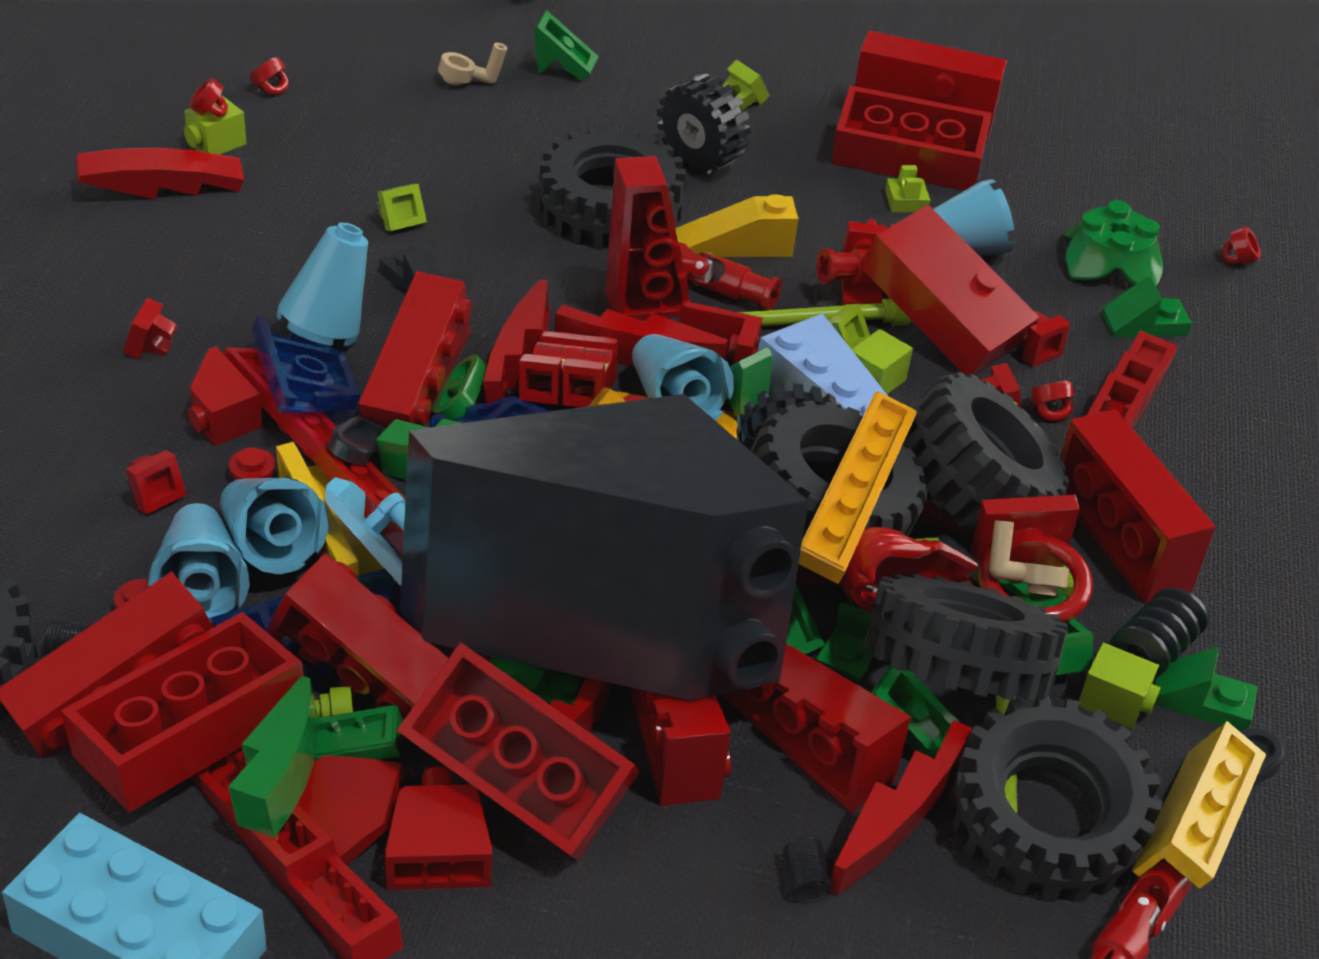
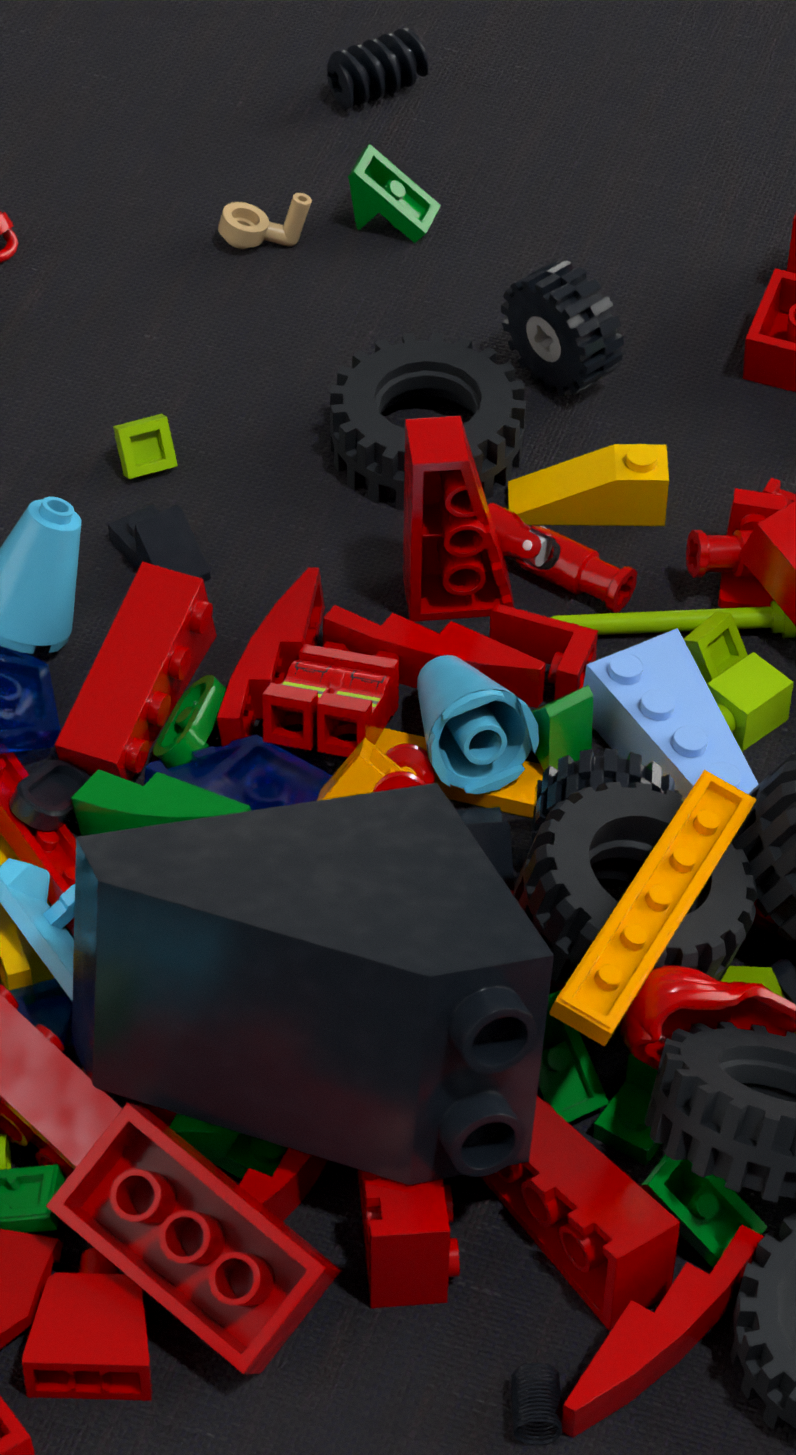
camera: 10 degrees right, 5 degrees up
(747, 84) = (637, 252): lime tile -> none

